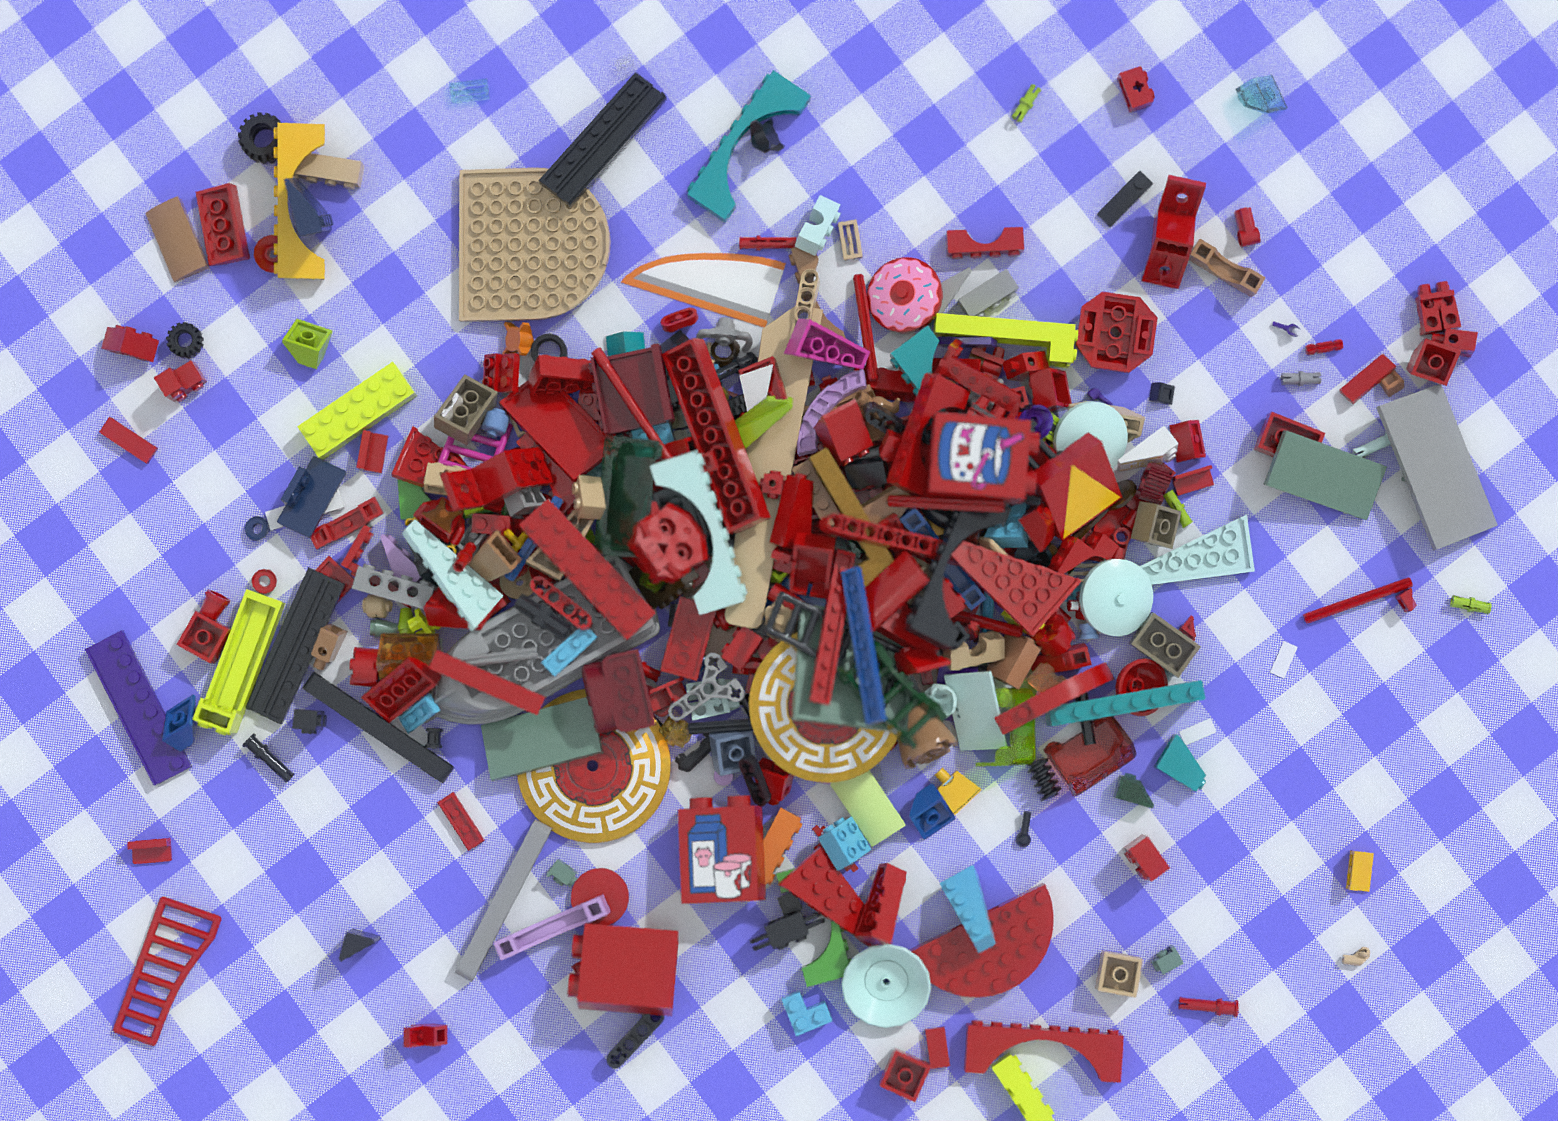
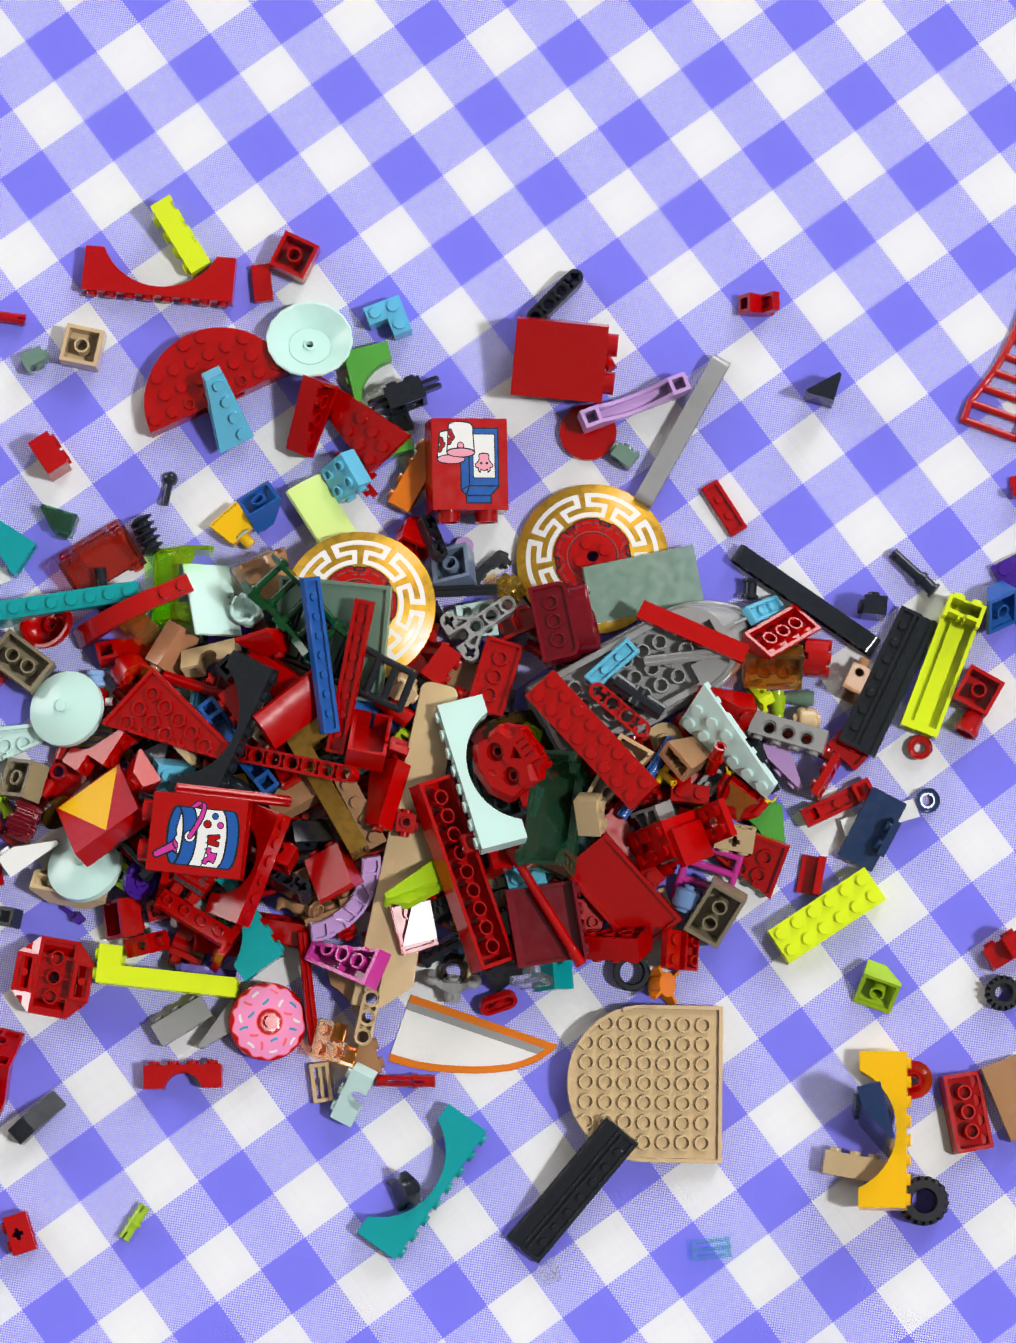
camera: 175 degrees left, 5 degrees down
(487, 467) = (690, 843): none -> red tile
(646, 340) = (531, 978): none -> clear tile
(843, 273) = (329, 1043): none -> clear orange brick

